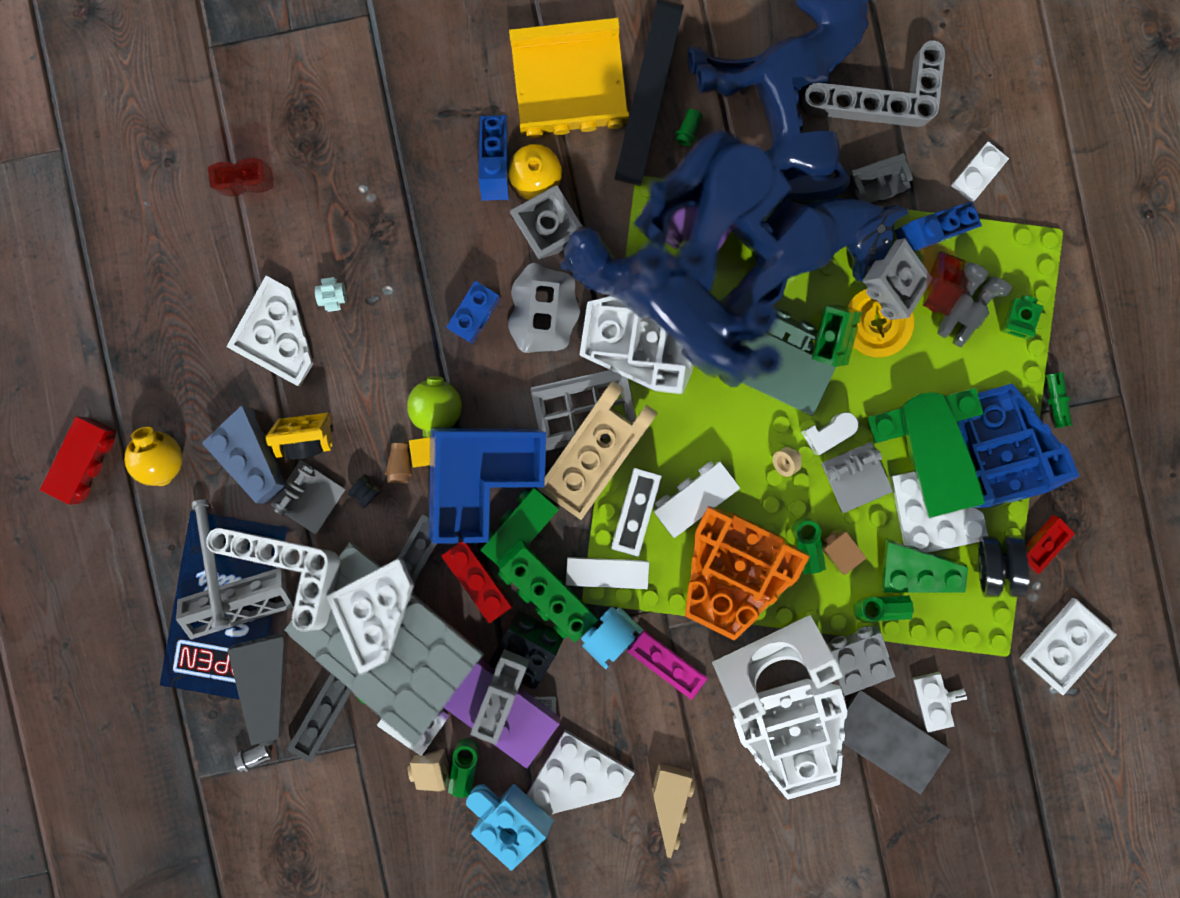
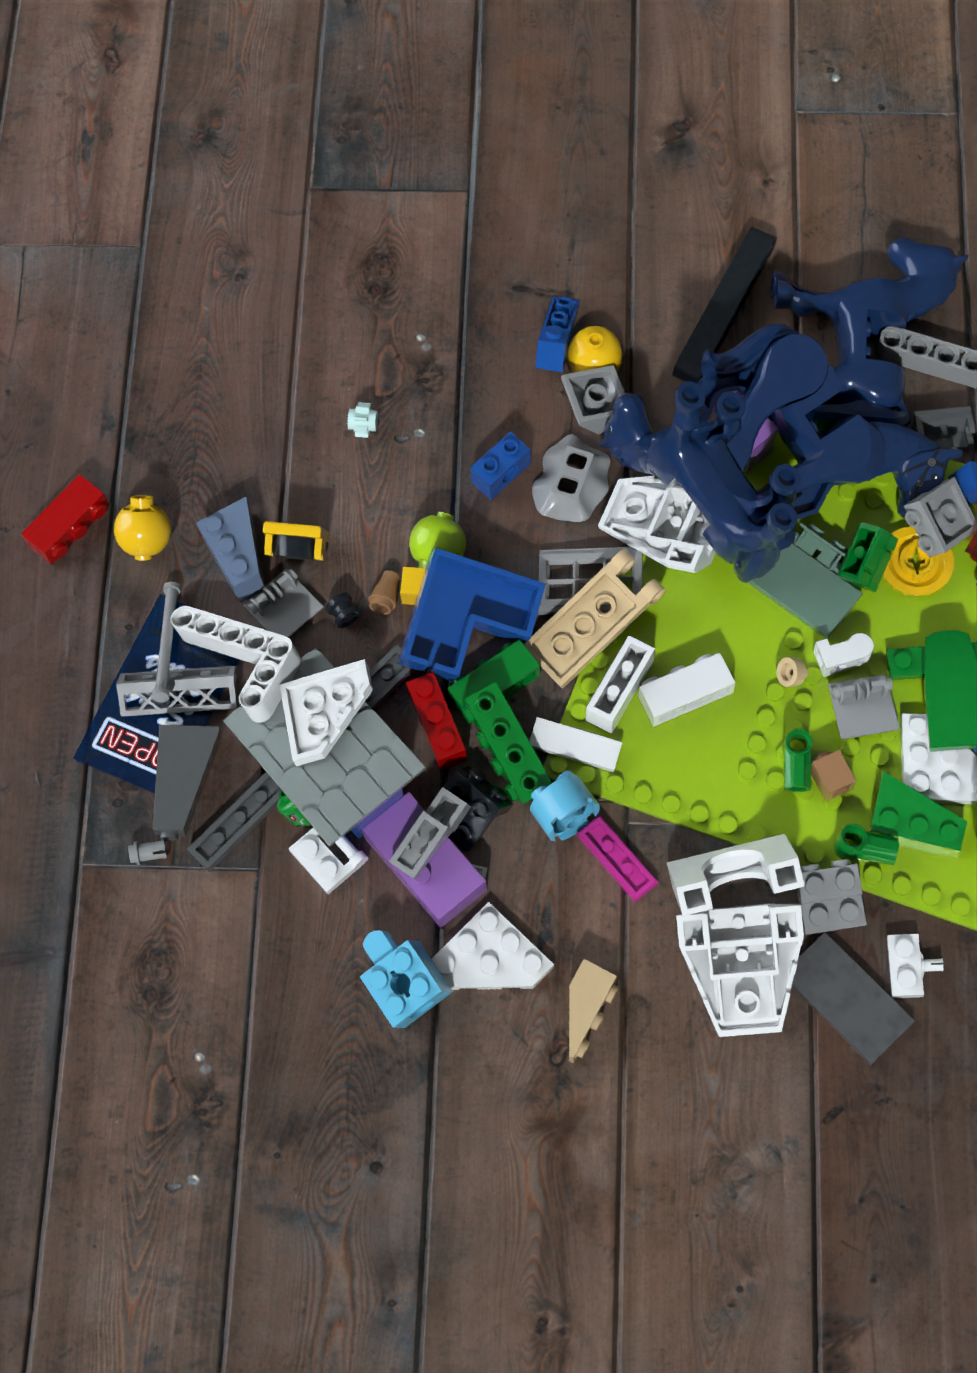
camera: 25 degrees right, 20 degrees down
(243, 176) = (304, 298): clear red brick -> none
(274, 333) = (295, 445): white plate -> none
(430, 771) = (332, 904): tan slope -> none
(463, 769) = (367, 916): green piece -> none
(569, 77) = (649, 277): yellow panel -> none
(738, 571) = (712, 767): orange wedge -> none

